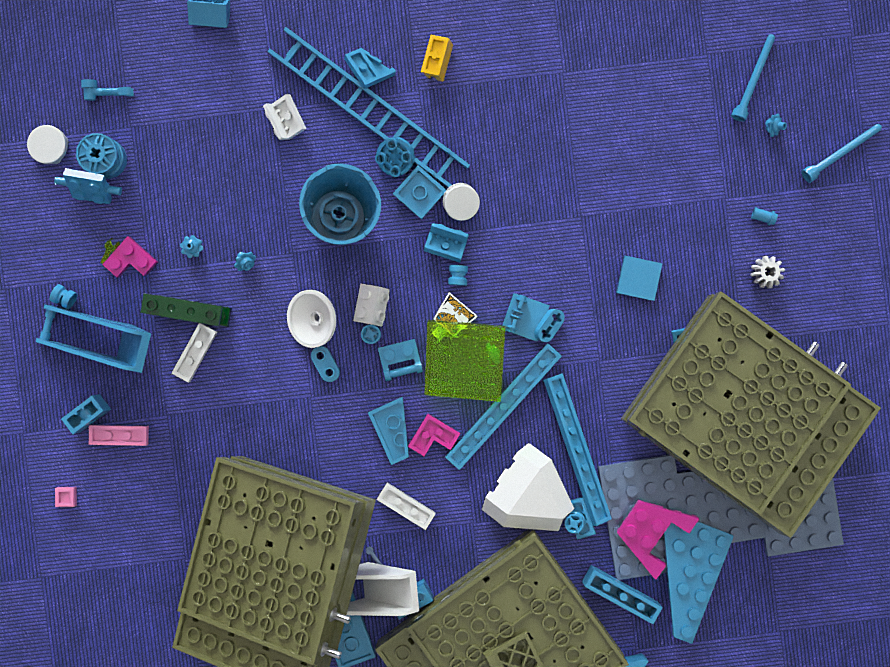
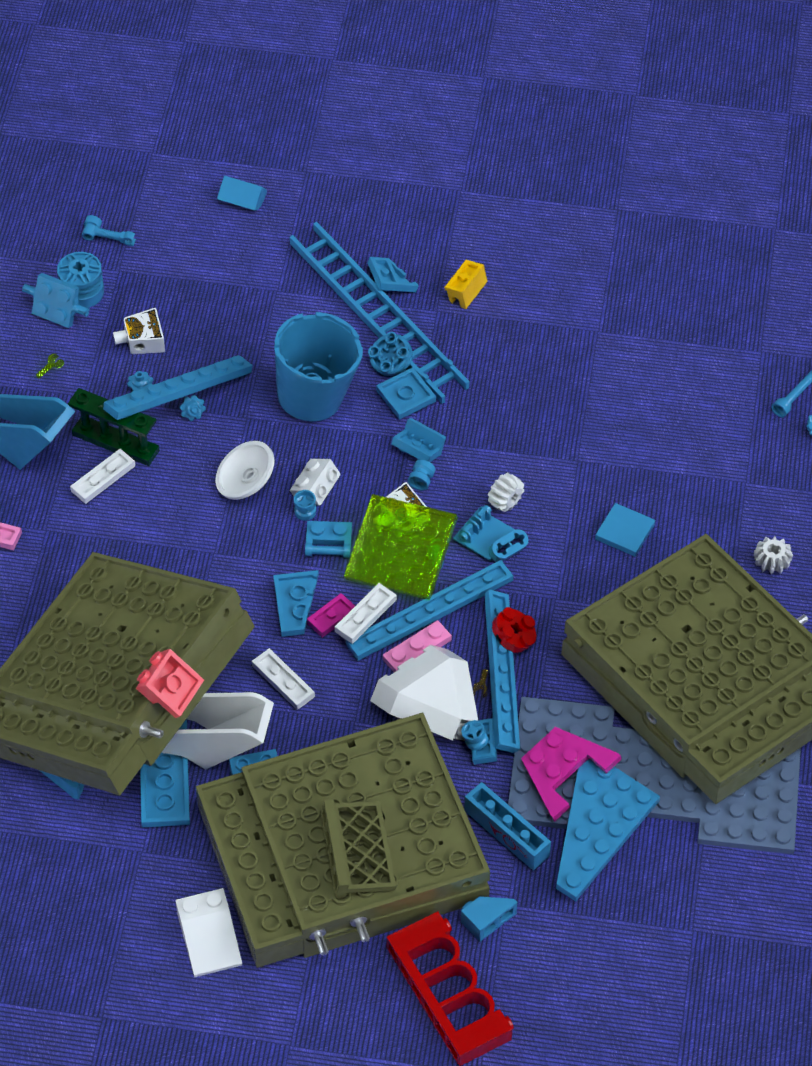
camera: 15 degrees right, 35 degrees down
(47, 144) = (26, 262): white tile -> none
(129, 254) = (67, 374): dark pink plate -> none
(175, 194) = (142, 333): none -> white torso
(226, 258) = (177, 387): none -> dark azure plate
(284, 118) = (285, 296): white bracket -> none
(326, 363) = (242, 522): dark azure plate -> none
(332, 619) = (169, 682): none -> coral plate
(455, 433) = (365, 613): none -> white plate
(461, 201) = (448, 409): white head -> none
(502, 442) = (413, 647): none -> bright pink plate
(534, 276) = (506, 492): none -> white gear
(563, 462) = (481, 684): none -> clear yellow hand
(587, 410) = (523, 624): none -> red plate
(764, 216) = (784, 504): dark azure pin -> none

